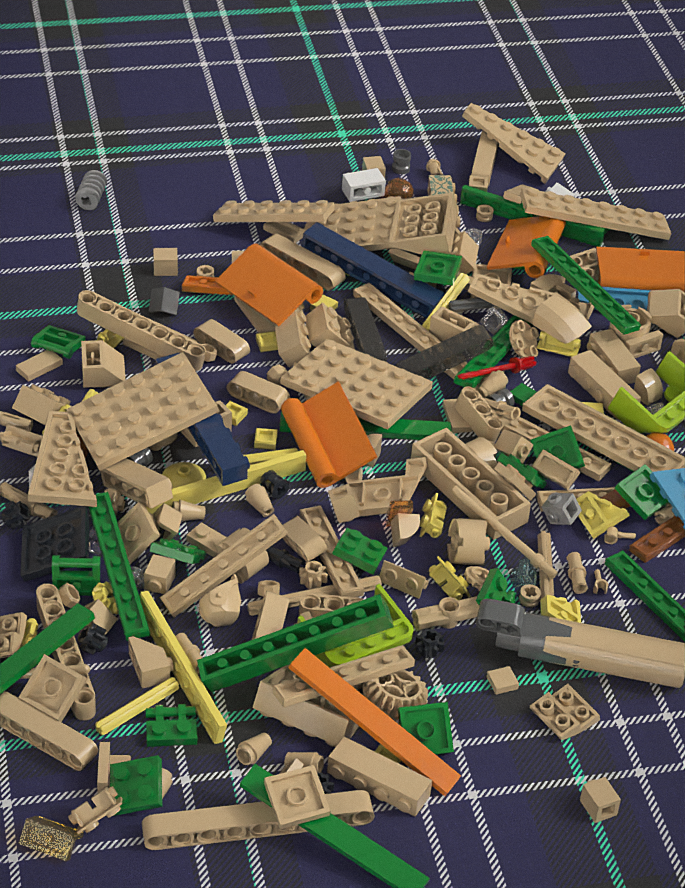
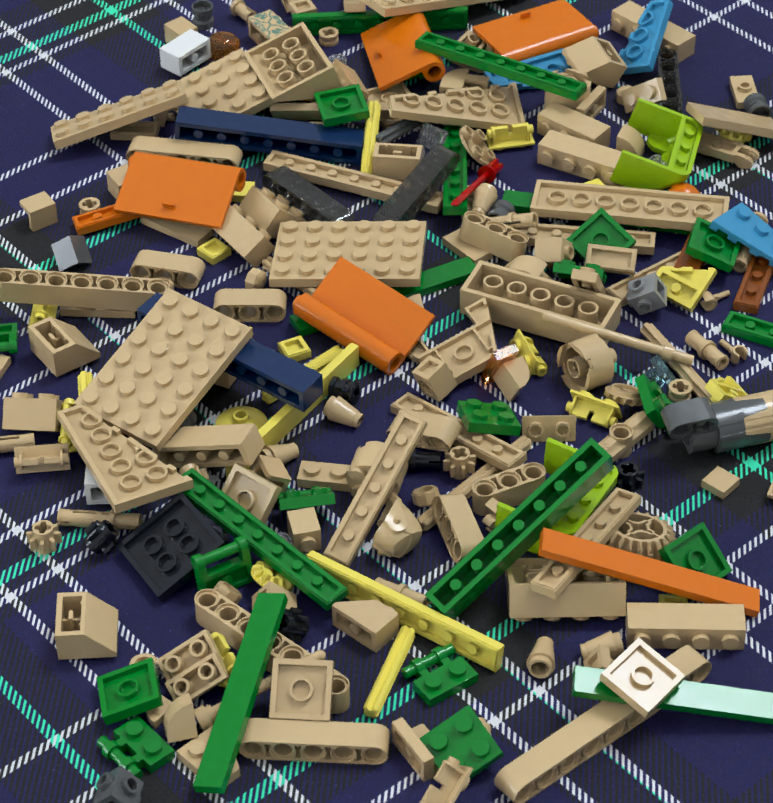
camera: 25 degrees left, 0 degrees up
(560, 319) = (503, 110): tan slope -> none

